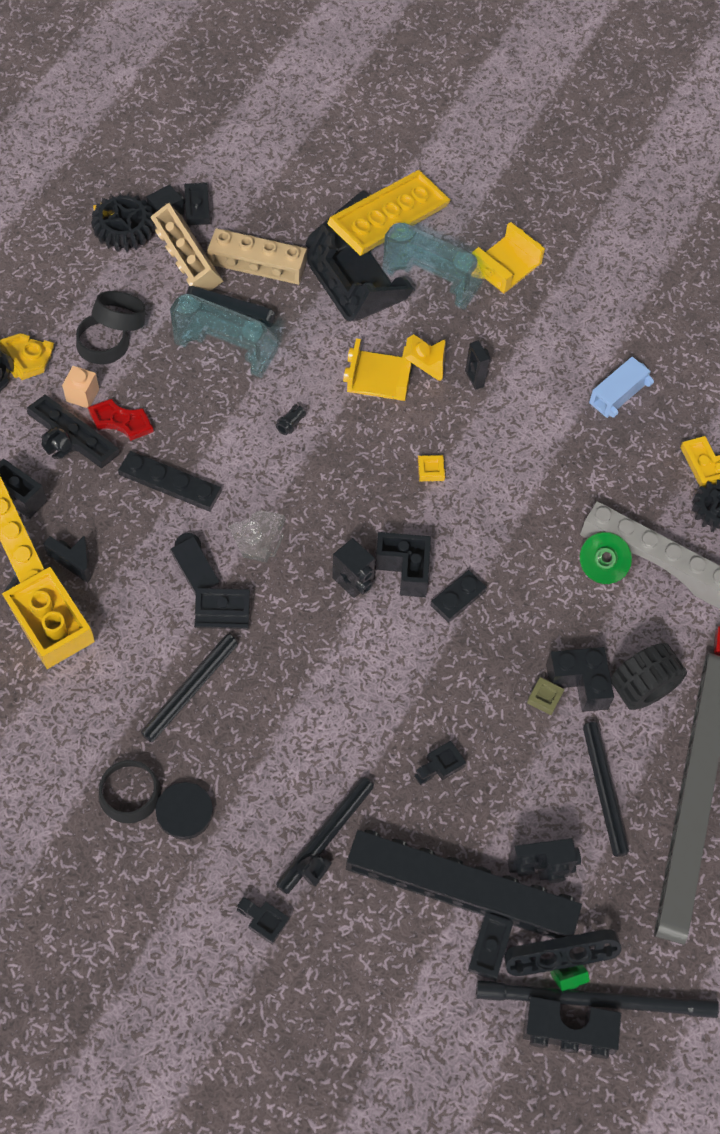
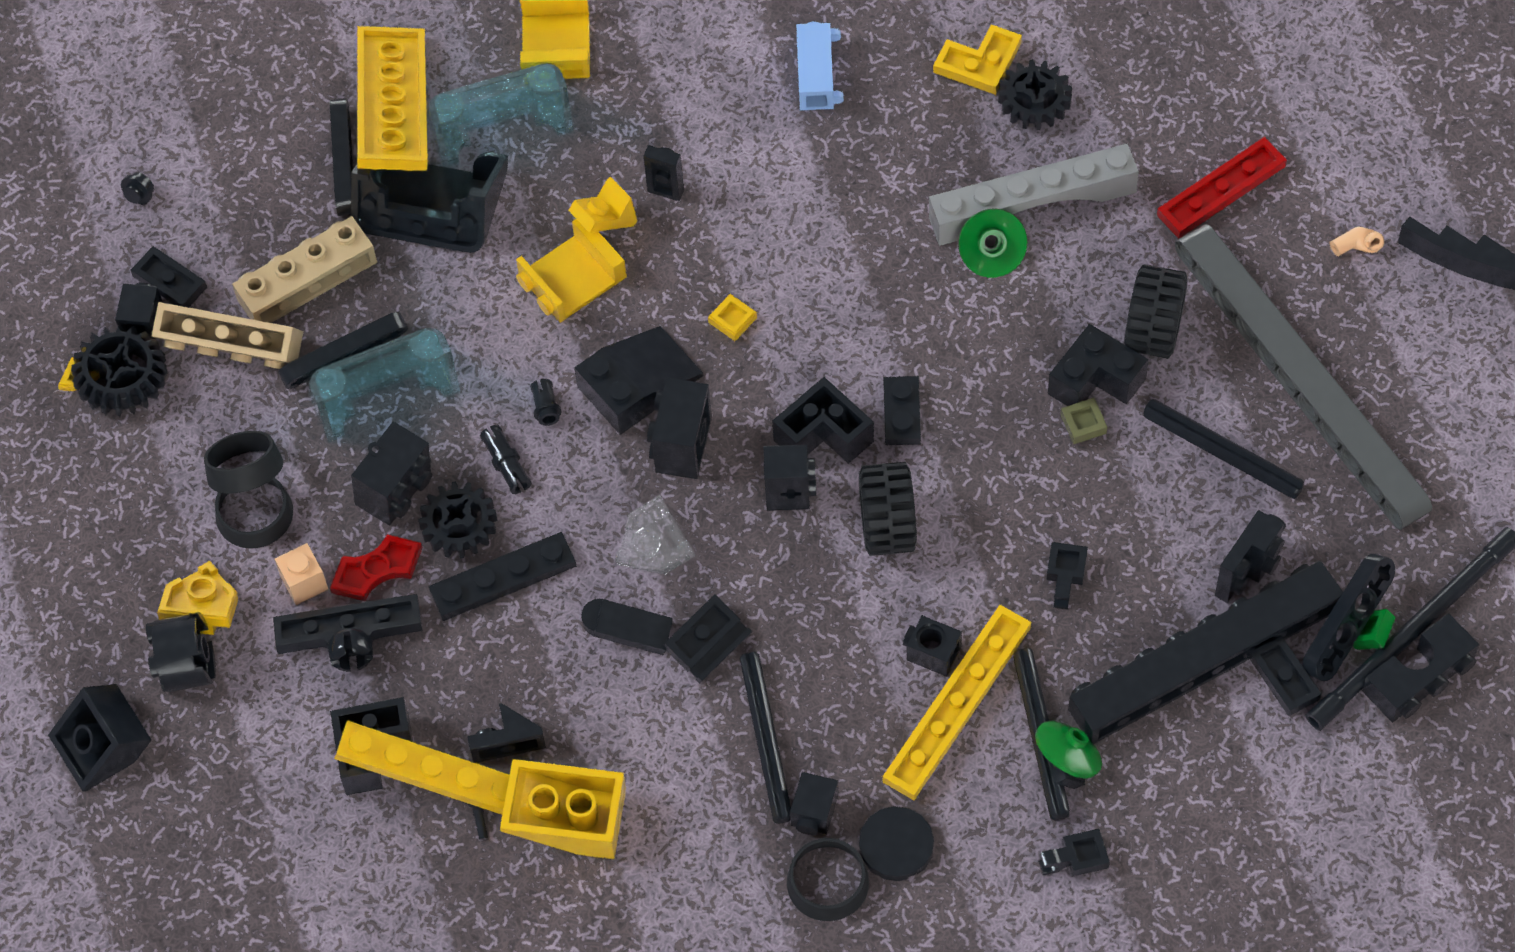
camera: 40 degrees left, 0 degrees up
(167, 745) = (814, 804): none -> black brick
(173, 379) = (393, 474): none -> black brick
(180, 433) = (457, 521): none -> black gear
(233, 153) = (137, 188): none -> black plate
(239, 428) = (505, 459): none -> black pin
(302, 771) = (956, 702): none -> yellow plate
(324, 858) = (1068, 749): none -> green dish
(326, 740) = (937, 659): none -> black brick
(332, 492) = (680, 428): none -> black brick
(348, 449) = (628, 373): none -> black slope
(381, 634) = (887, 508): none -> black tyre

